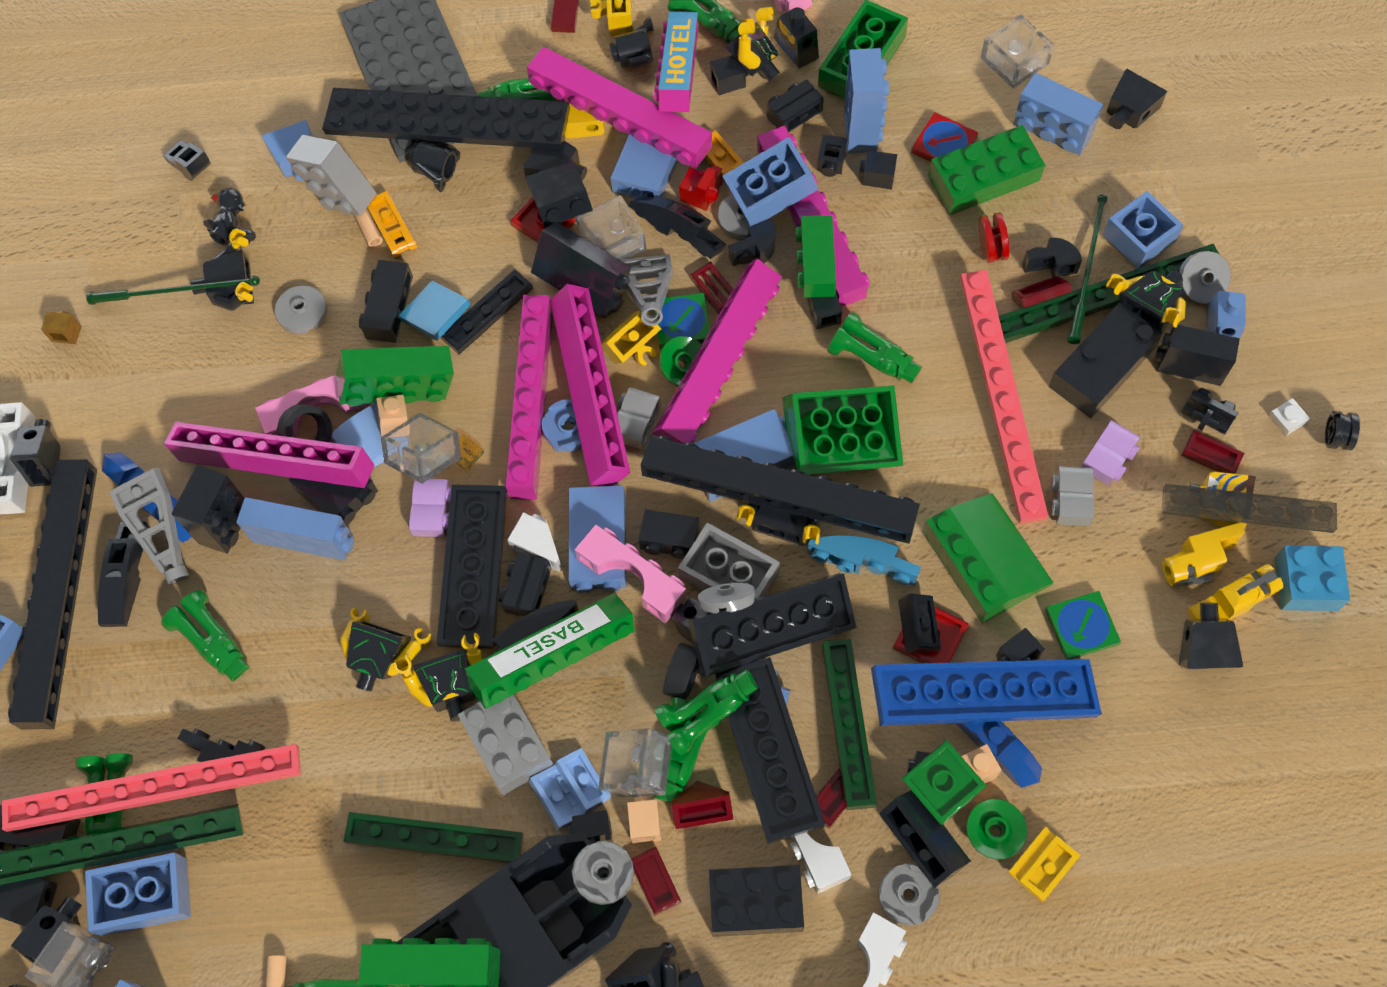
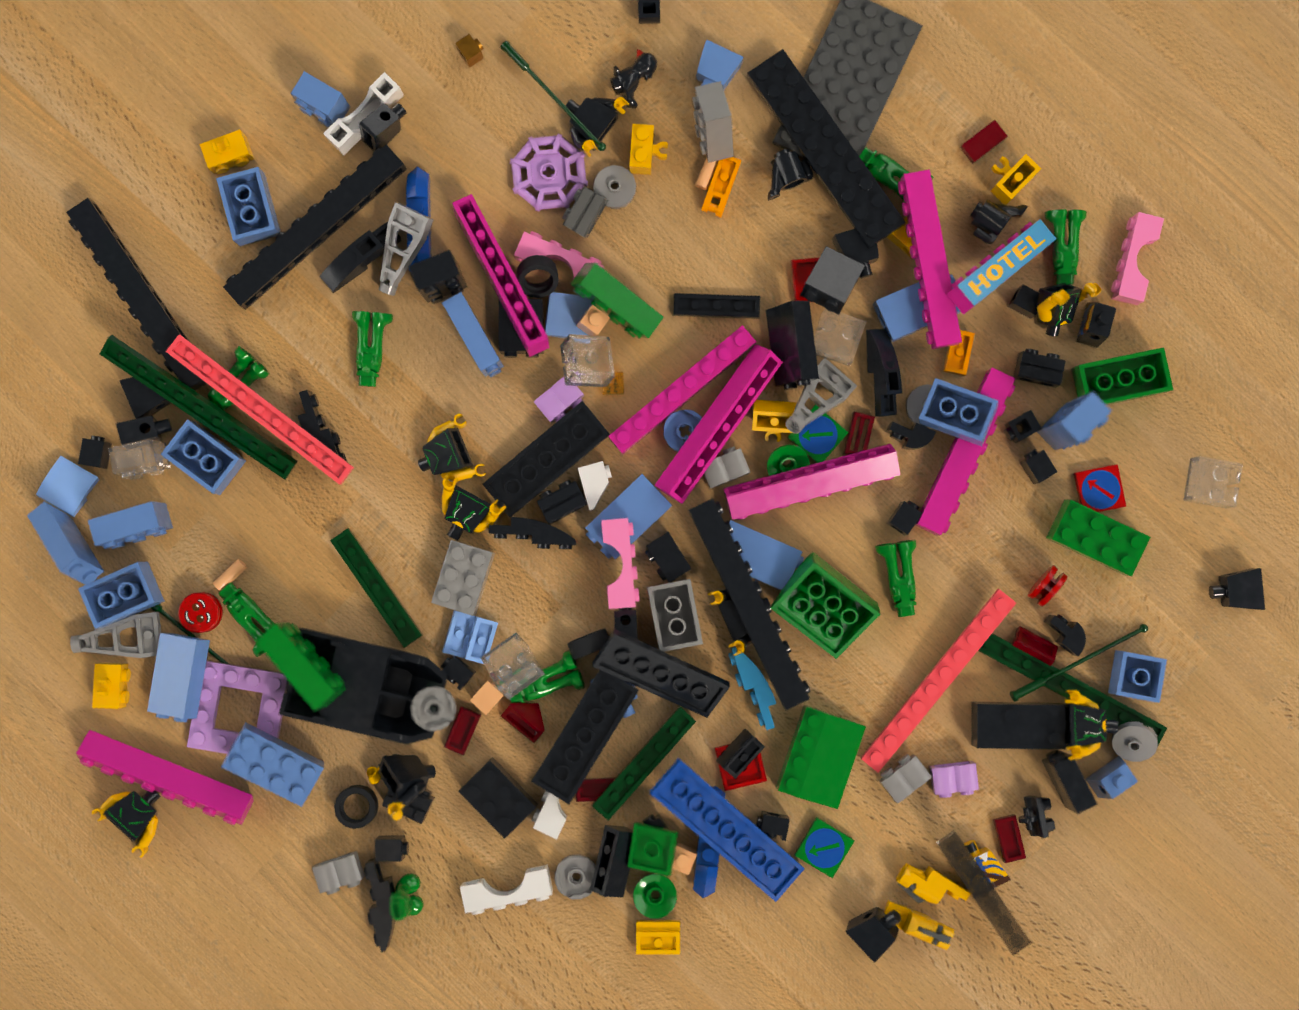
camera: 40 degrees right, 20 degrees up
(235, 363) = (542, 183): none -> lavender plate
(294, 346) = (585, 211): none -> dark grey brick
(295, 258) = (643, 149): none -> yellow brick
(386, 301) = (666, 236): black brick -> none
(434, 310) = (686, 275): dark azure tile -> none
(549, 650) = (533, 558): green brick -> none
(701, 187) = (922, 362): red brick -> none
(720, 698) = (587, 686): green piece -> none
(729, 596) = (649, 637): light grey plate -> none
(816, 256) = (930, 488): green brick -> none
(1057, 113) = (1181, 551): medium blue brick -> none
(1289, 417) = (1077, 866): white plate -> none
(1312, 578) = (971, 960): dark azure brick -> none
(1342, 430) = (1092, 907): black wheel -> none

